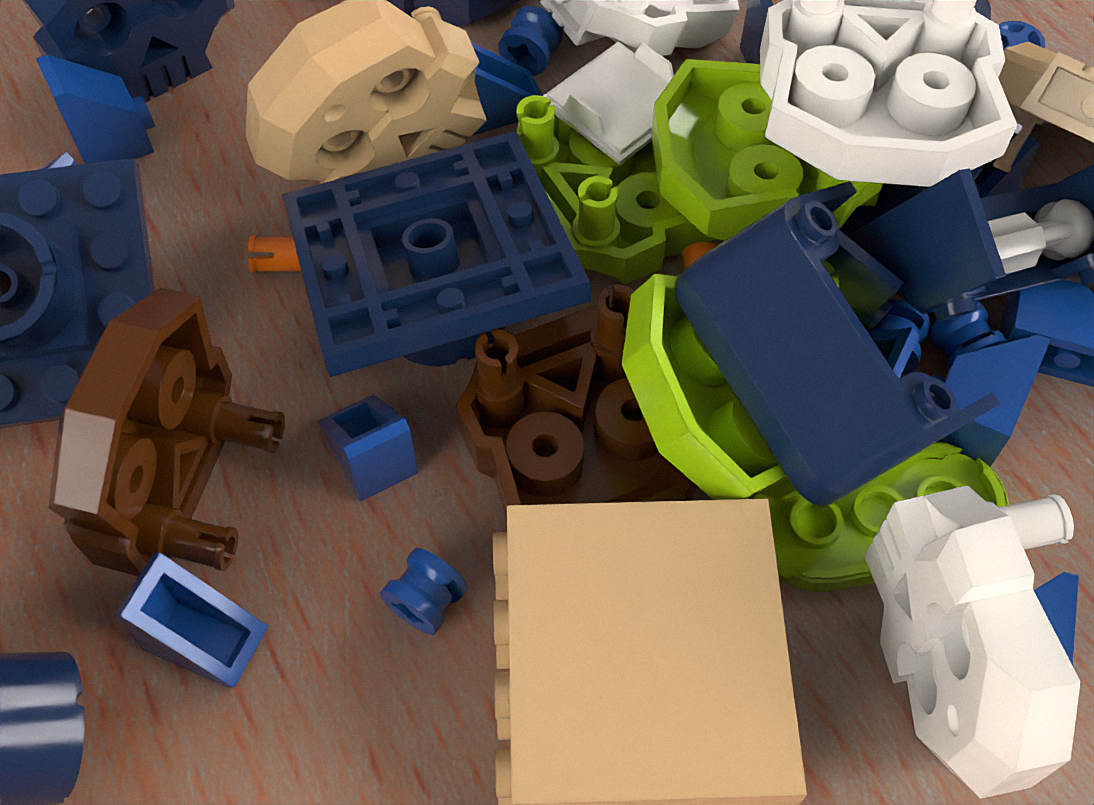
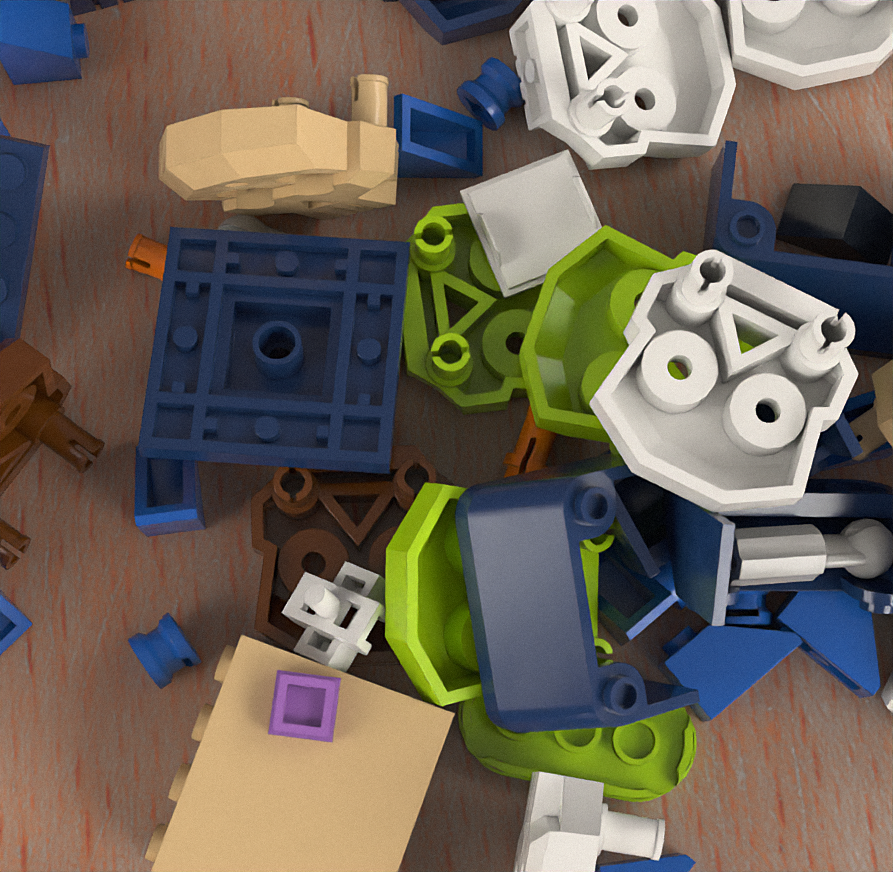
camera: 15 degrees right, 20 degrees up
(586, 449) = (331, 605): none -> white piece
(609, 545) = (304, 706): none -> medium lavender tile

